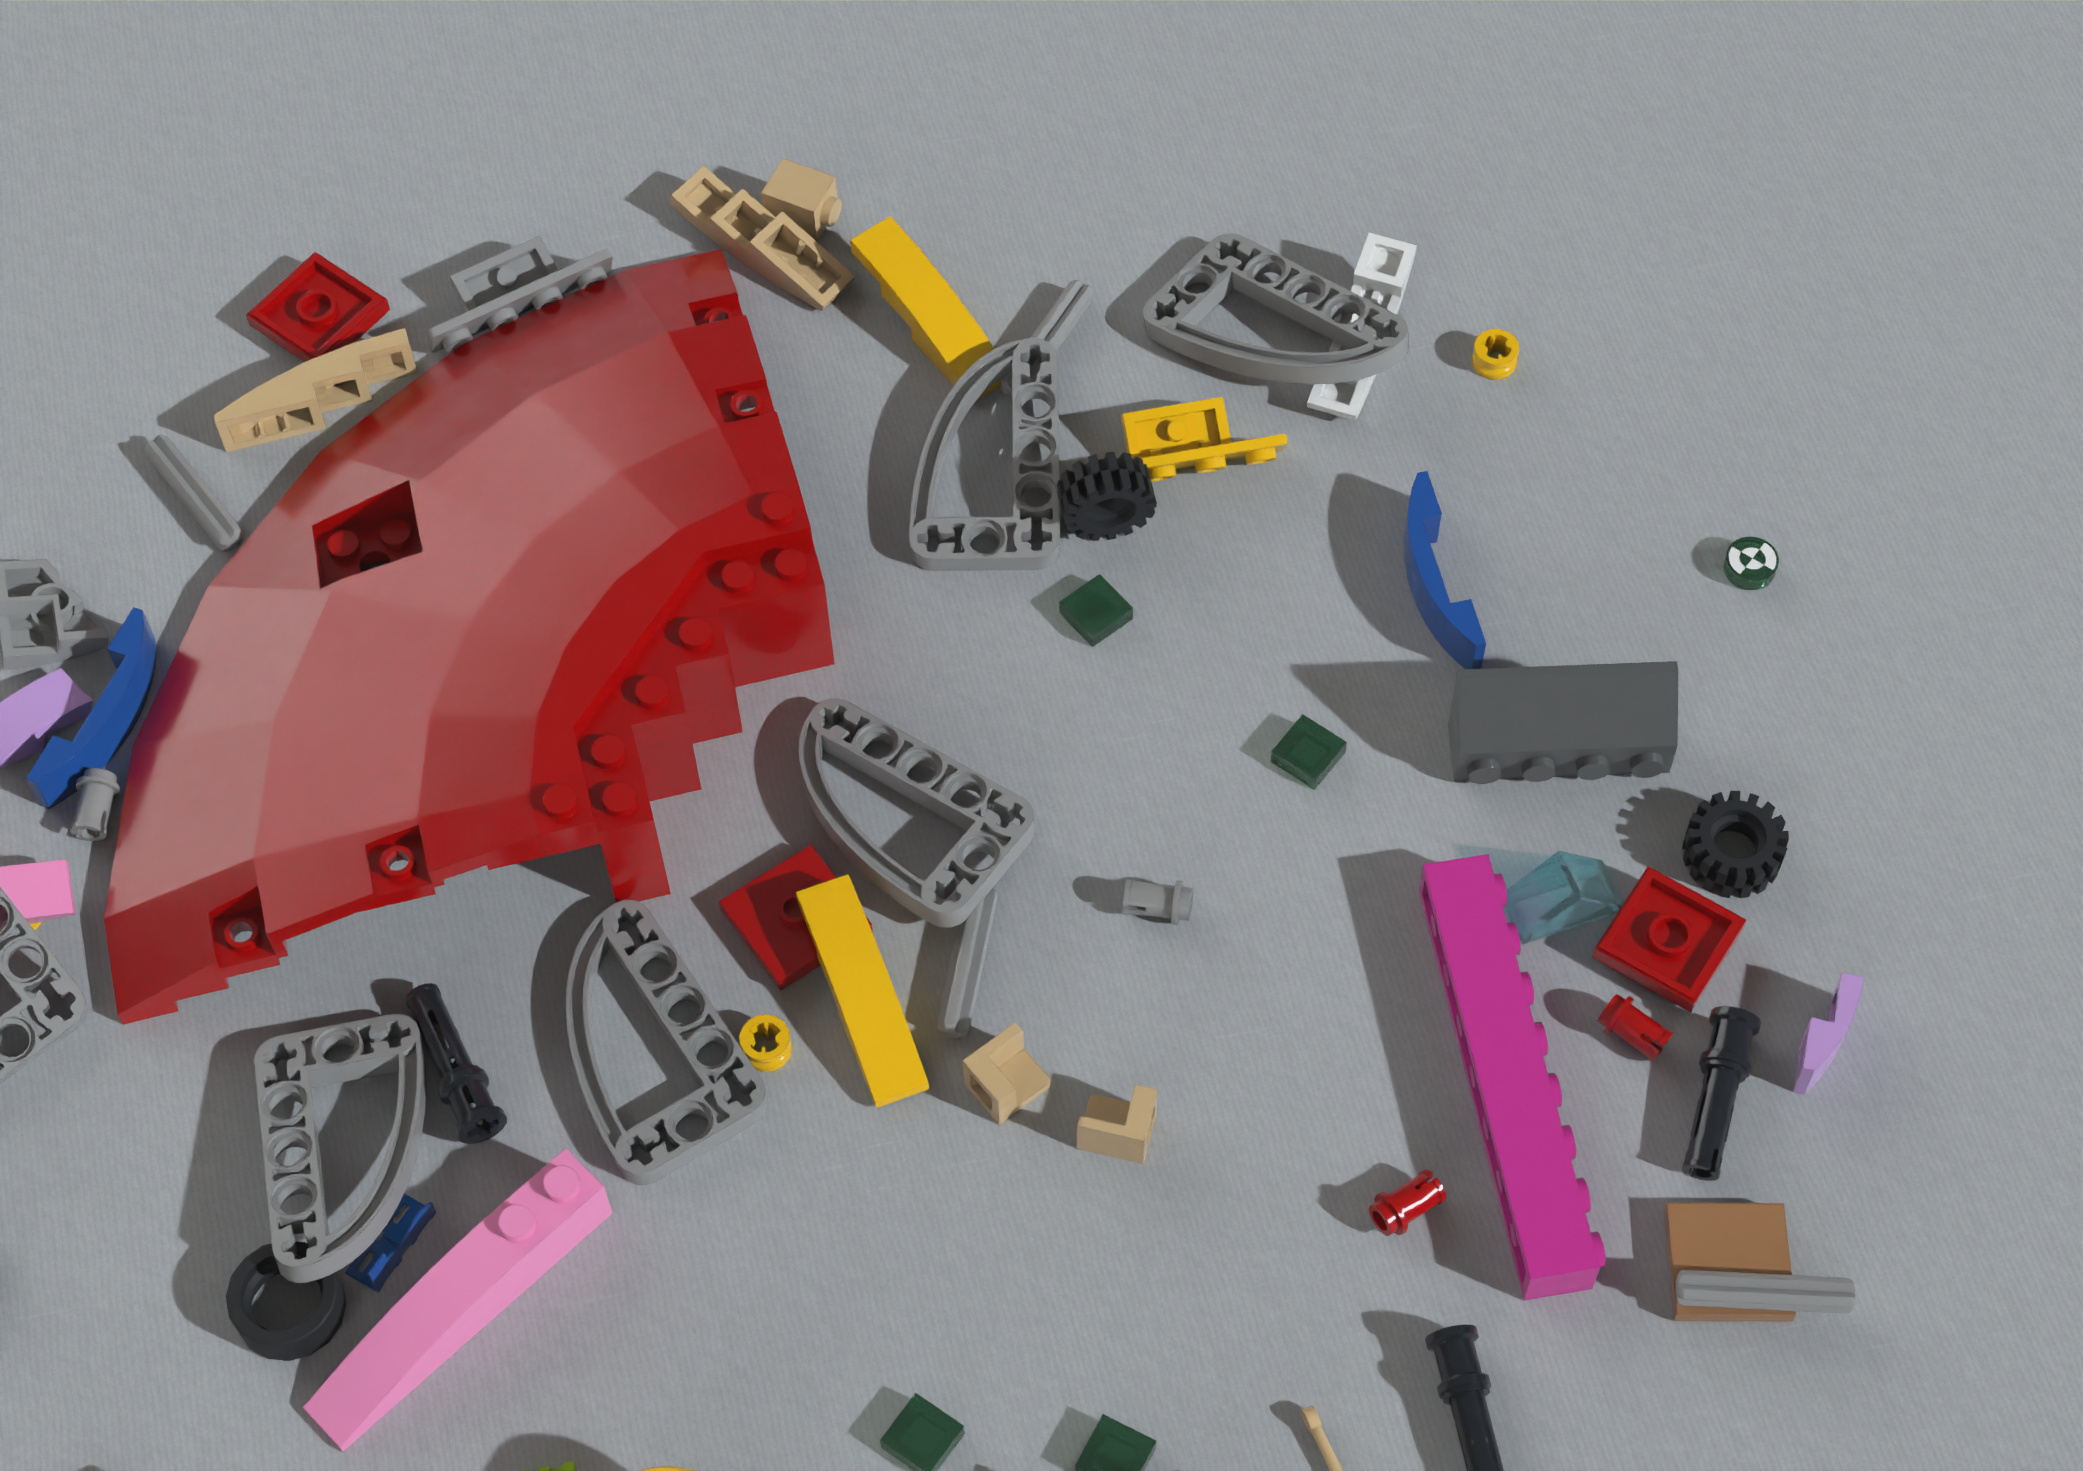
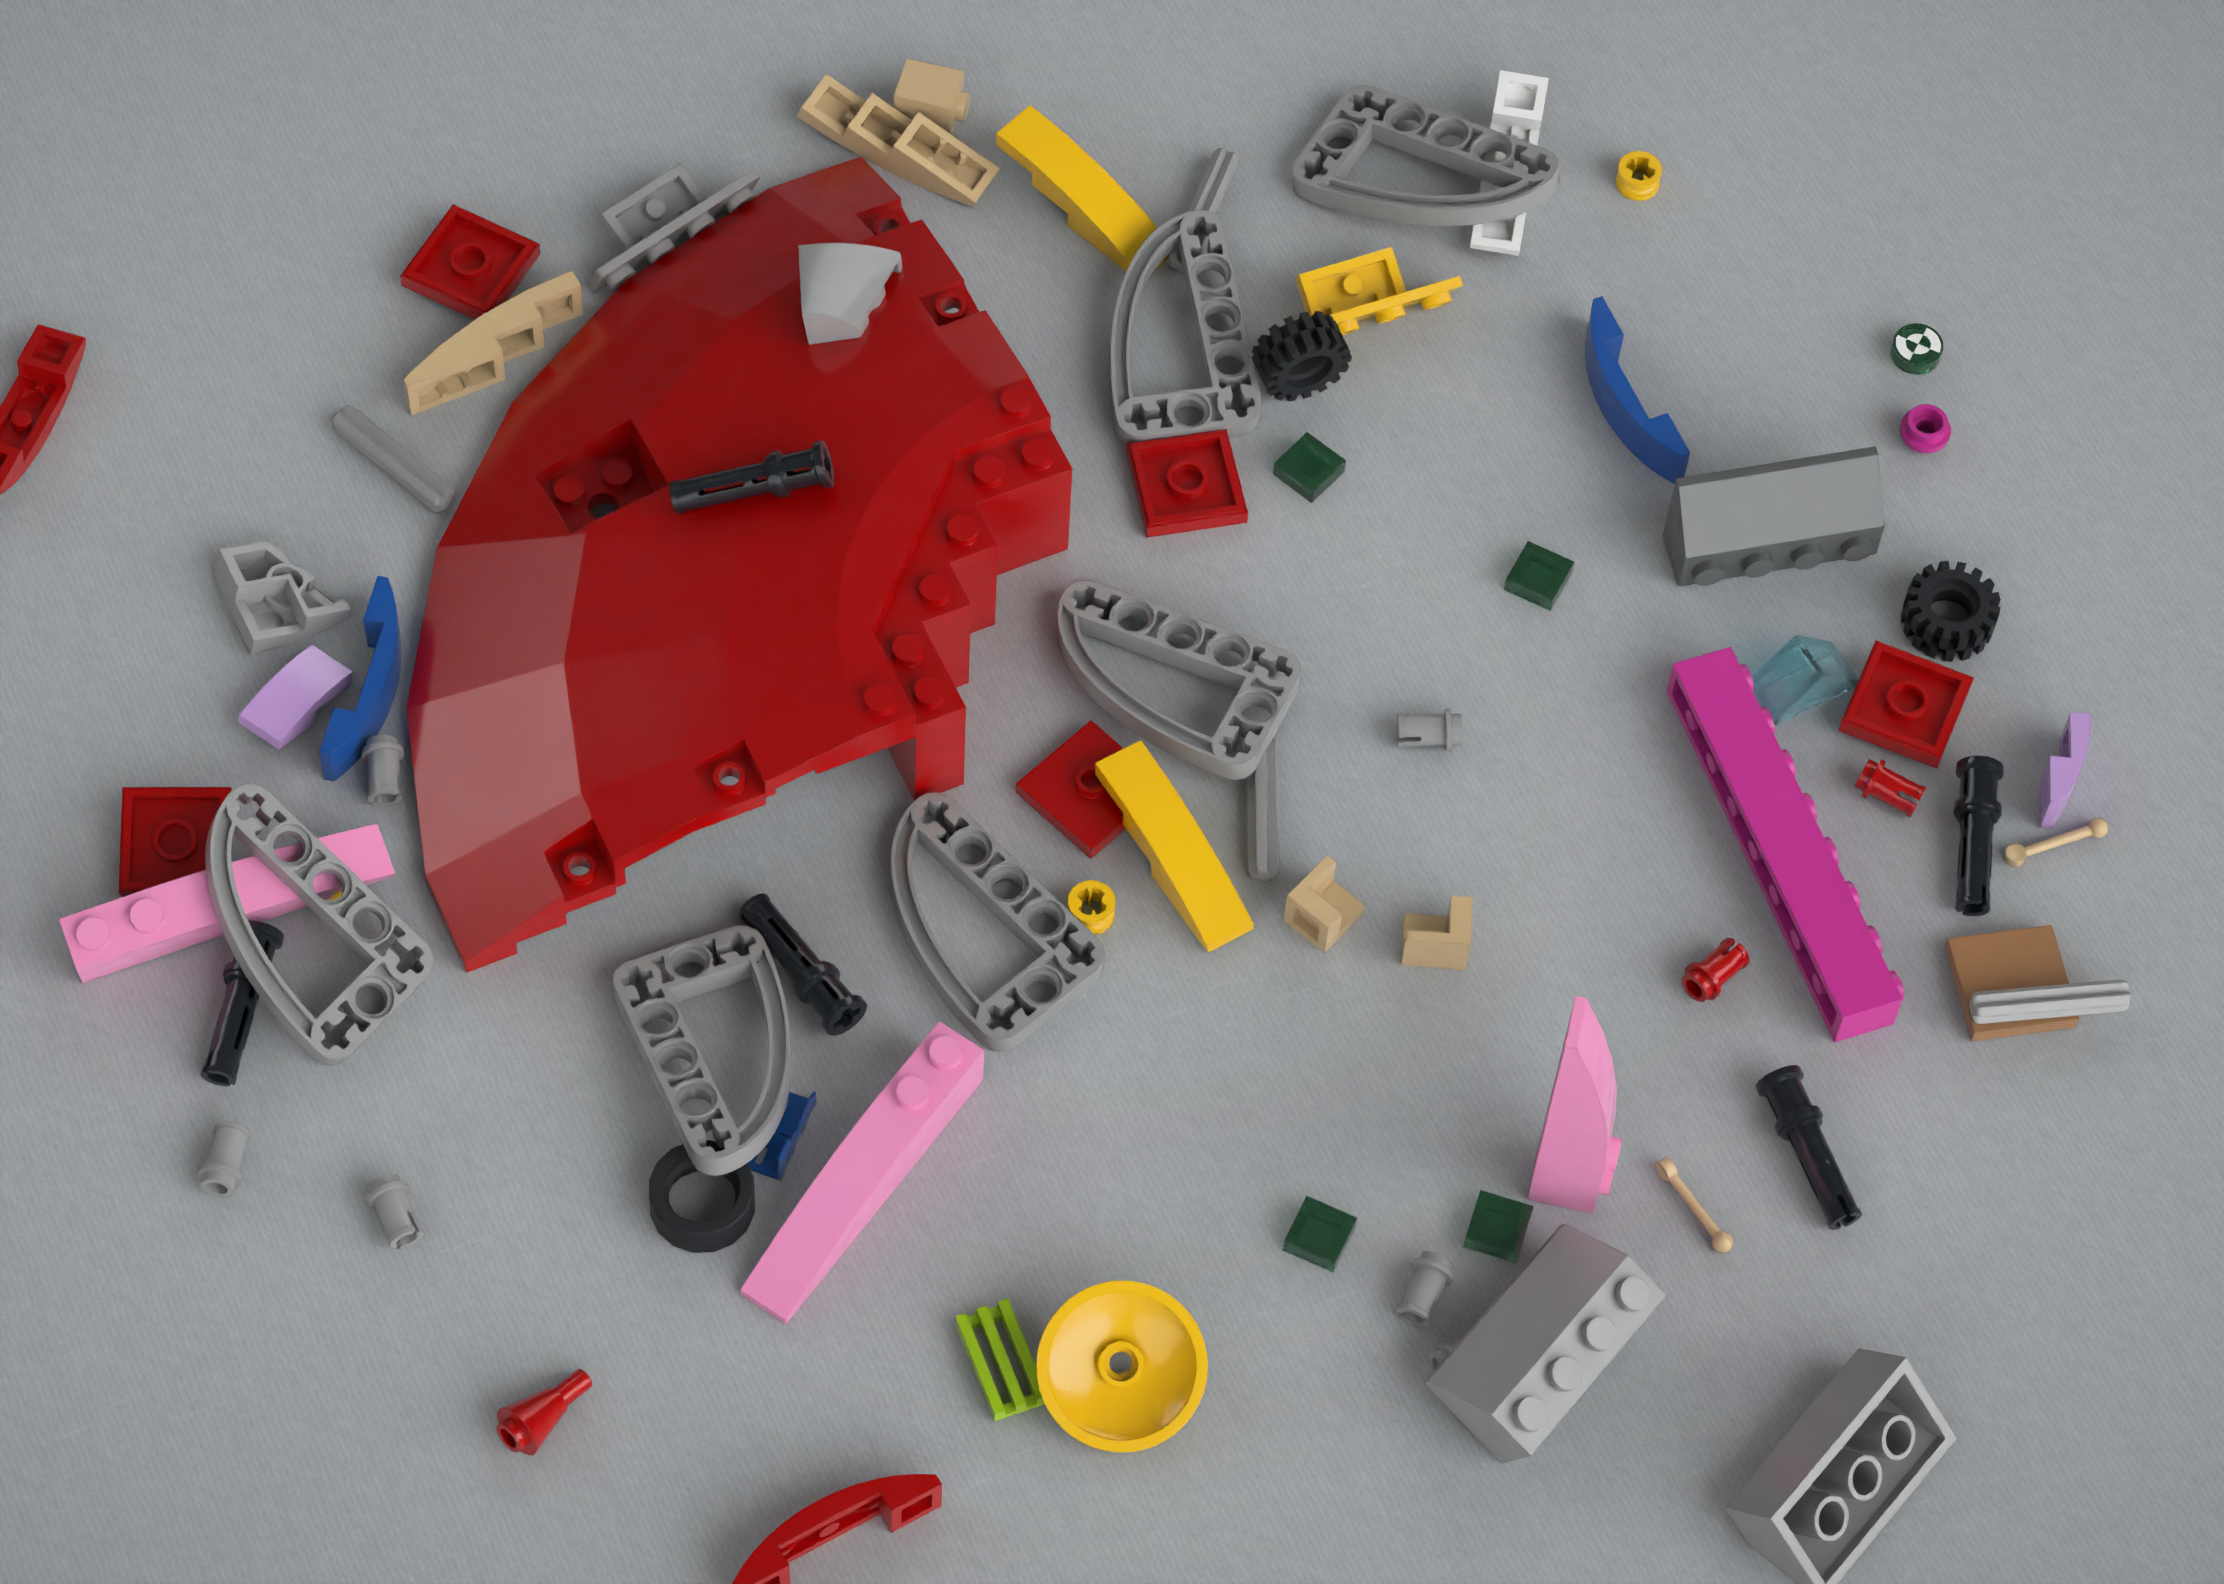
camera: 15 degrees left, 0 degrees up
(514, 554) = (780, 480): none -> black pin
(639, 373) = (842, 287): none -> light grey slope
(968, 611) = (1186, 483): none -> red tile
(1201, 1358) = (1576, 1140): none -> bright pink slope
(1746, 636) = (1926, 418): none -> dark pink plate
(1760, 1117) = (2016, 853): none -> tan hinge

